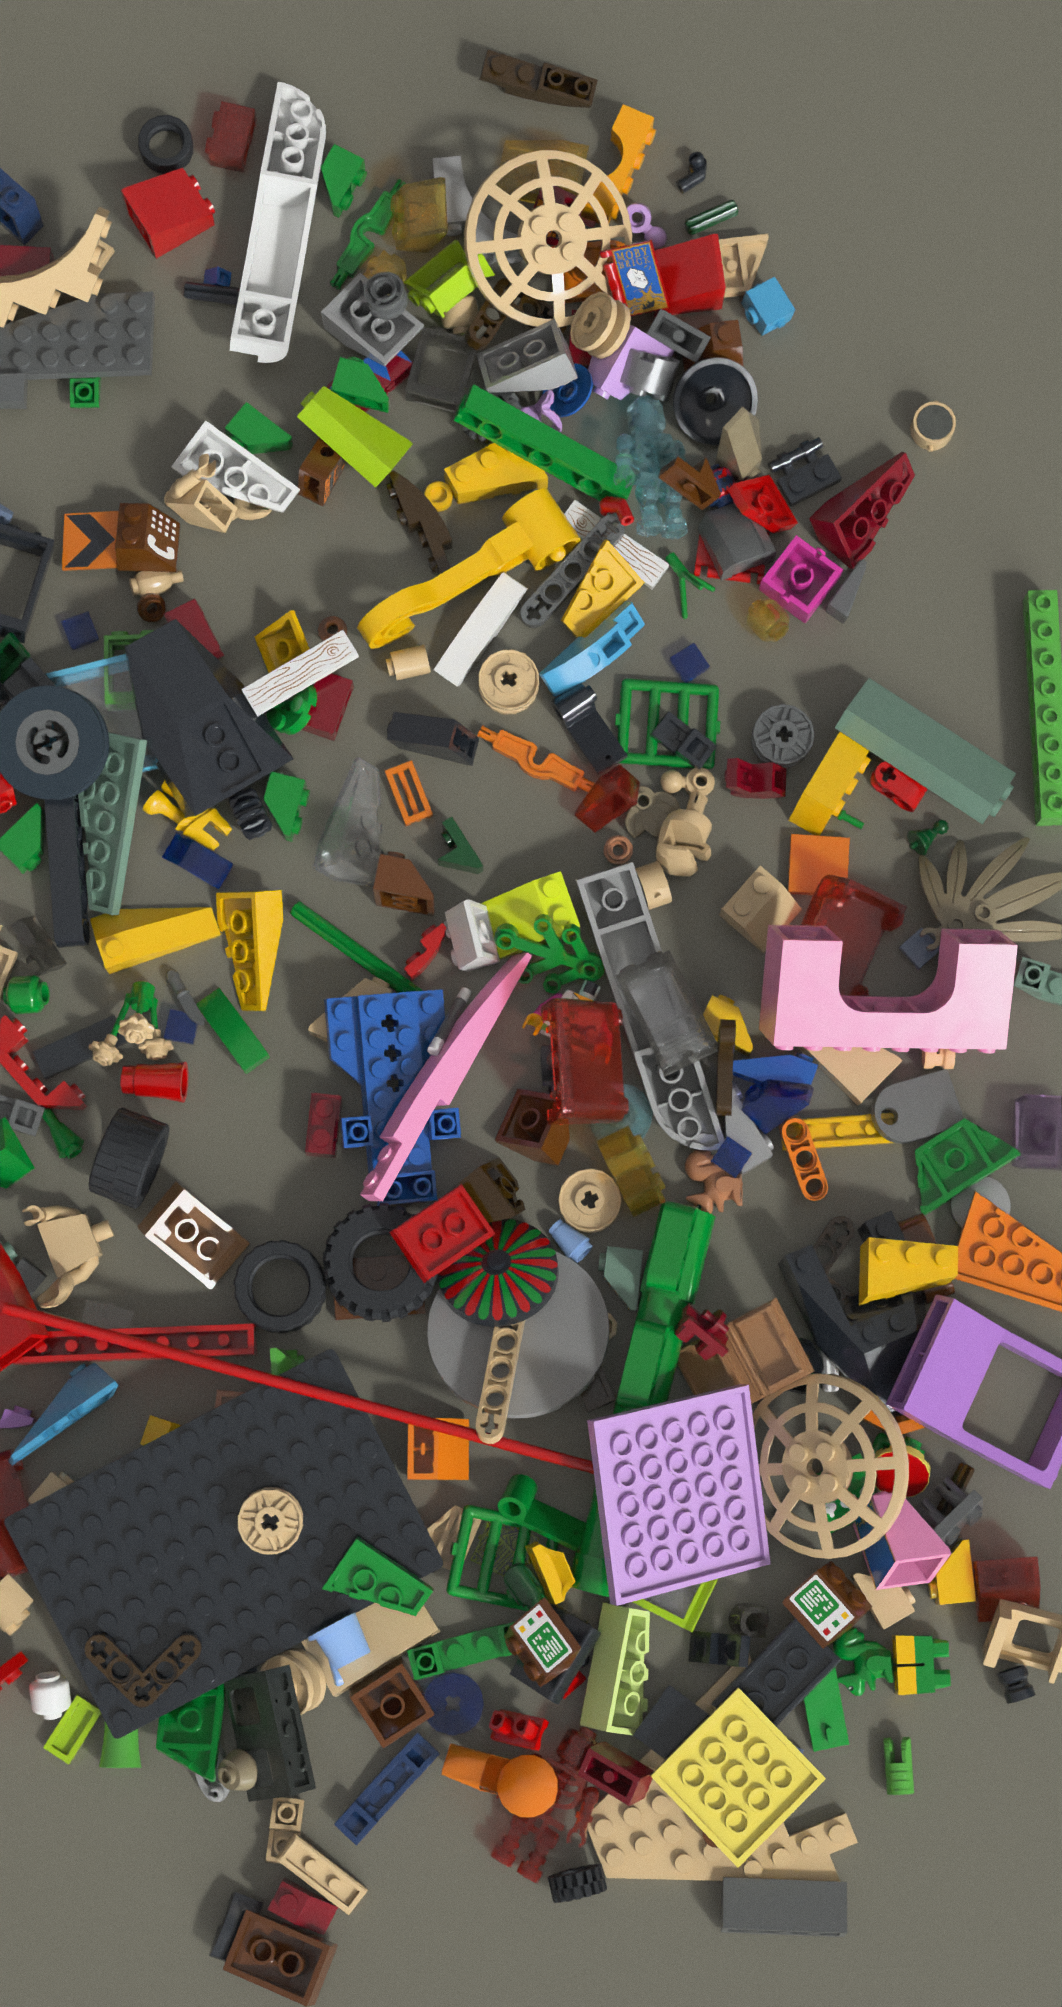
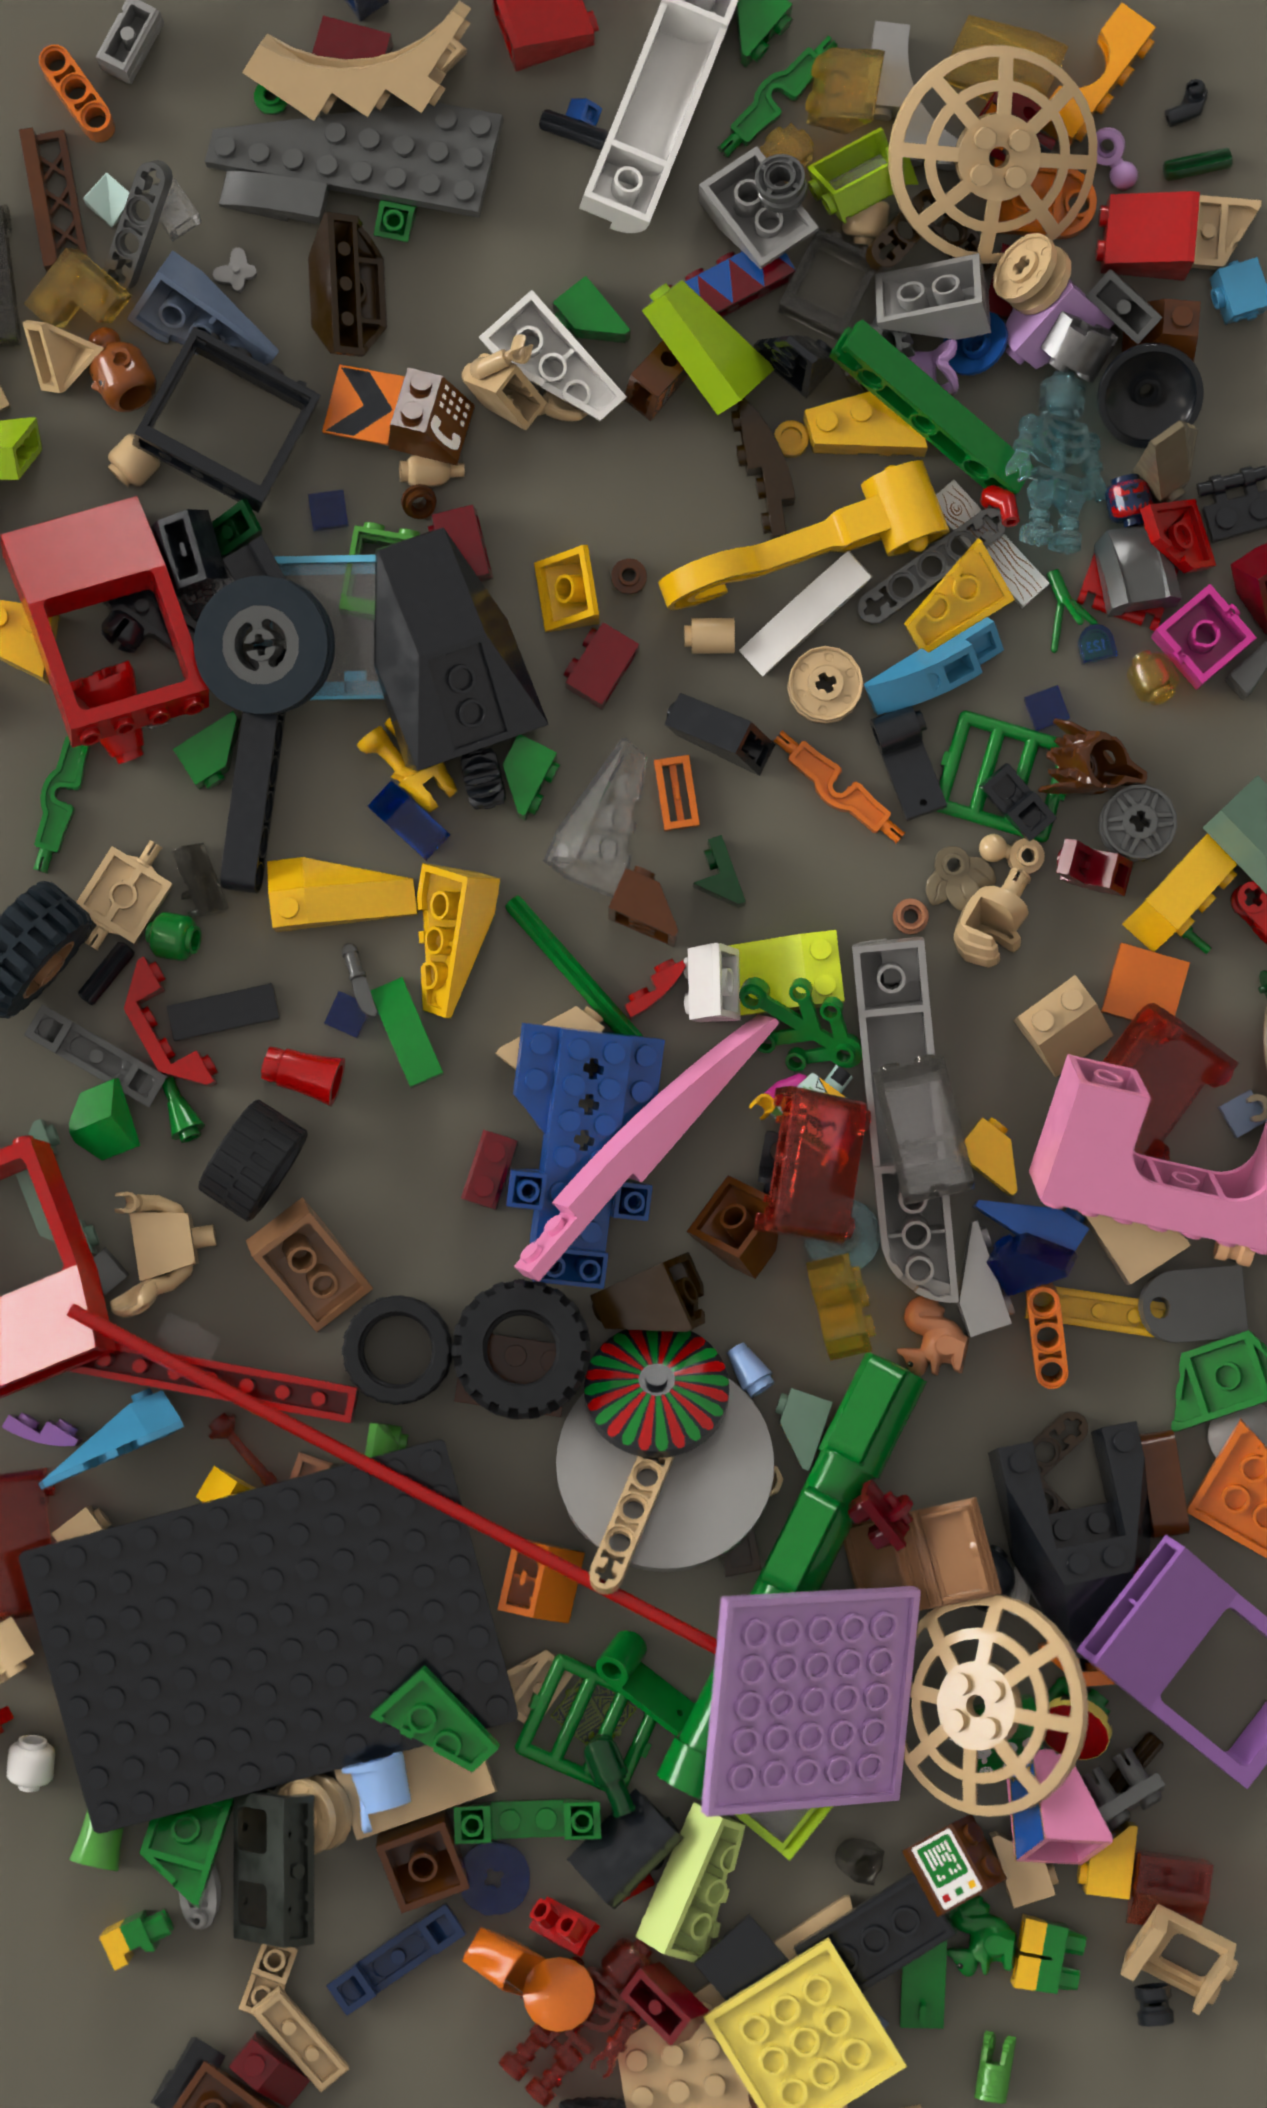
camera: 15 degrees right, 5 degrees up
(56, 450) = (346, 286): none -> dark brown wedge
(73, 1729) = (49, 1807): lime tile -> none
(108, 820) = (314, 749): sand green wing -> none
(135, 1028) = (294, 1009): tan plant -> none
(137, 1675) = (135, 1769): dark brown beam -> none
(151, 1383) = (223, 1428): none -> clear red piece
(164, 1815) = (135, 1932): none -> green hips
(238, 1771) = (228, 1901): dark tan cone -> none
(266, 1538) = (317, 1644): tan wheel -> none
(292, 713) = (562, 644): green plate -> none
(300, 673) = (578, 624): white tile -> none
(359, 385) = (724, 285): green slope -> none
(429, 432) = (797, 360): none -> black wedge
(442, 1233) = (600, 1333): red tile -> none
(449, 1021) = (664, 1080): dark grey bar -> none
(542, 1643) = (611, 1838): slope -> none
(551, 1571) = (641, 1752): yellow slope -> none
(606, 1207) = (799, 1342): tan wheel -> none
(608, 798) = (913, 853): clear red slope -> none
(635, 277) = (1088, 224): piece -> none
(654, 885) = (943, 969): tan piece -> none
(693, 482) = (1101, 491): reddish brown slope -> none
(717, 604) = (1096, 644): none -> tile
(719, 1649) = (817, 1886): black slope -> none
(726, 1048) = (985, 1187): dark brown beam -> none
(728, 698) = (1086, 764): none -> reddish brown piece
(731, 1157) = (961, 1316): clear blue tile -> none
(903, 1267) = (1134, 1493): yellow wedge -> none

